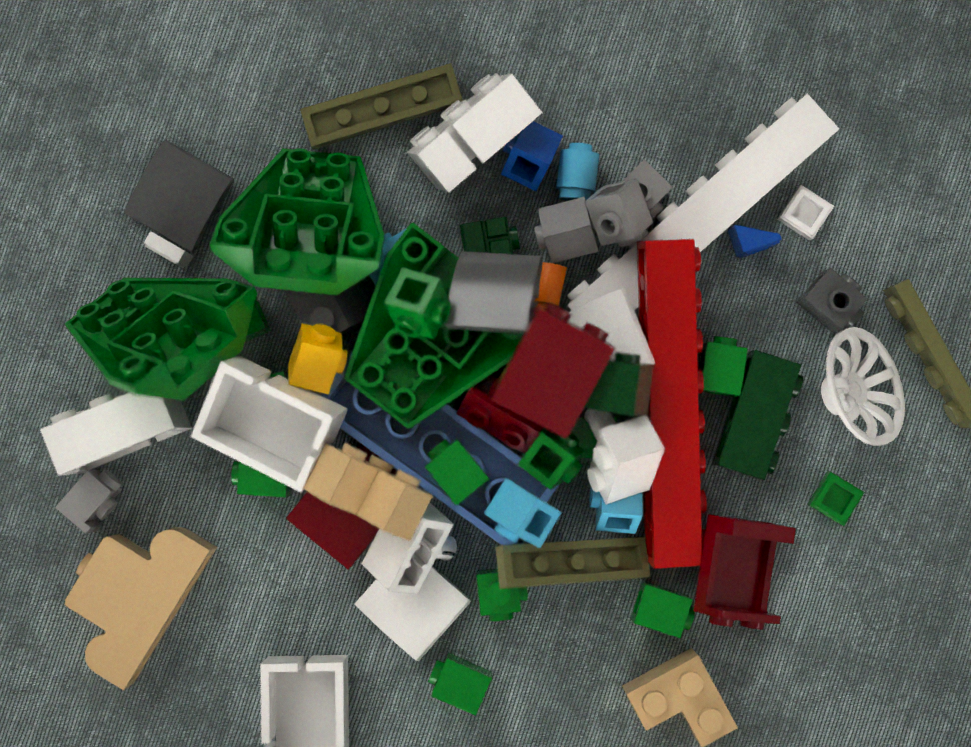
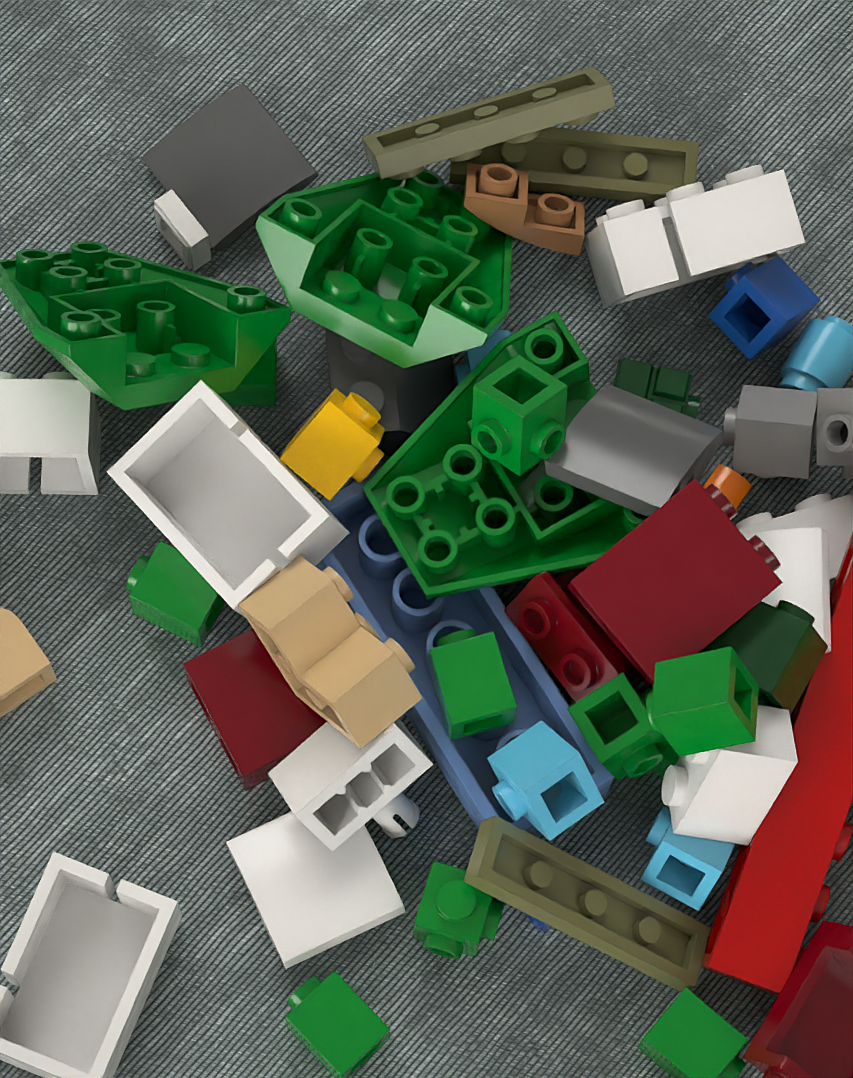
camera: 15 degrees right, 15 degrees down
(321, 107) = (507, 117): none -> olive plate
(376, 153) = (502, 200): none -> medium nougat slope
(598, 441) = (704, 701): none -> green brick

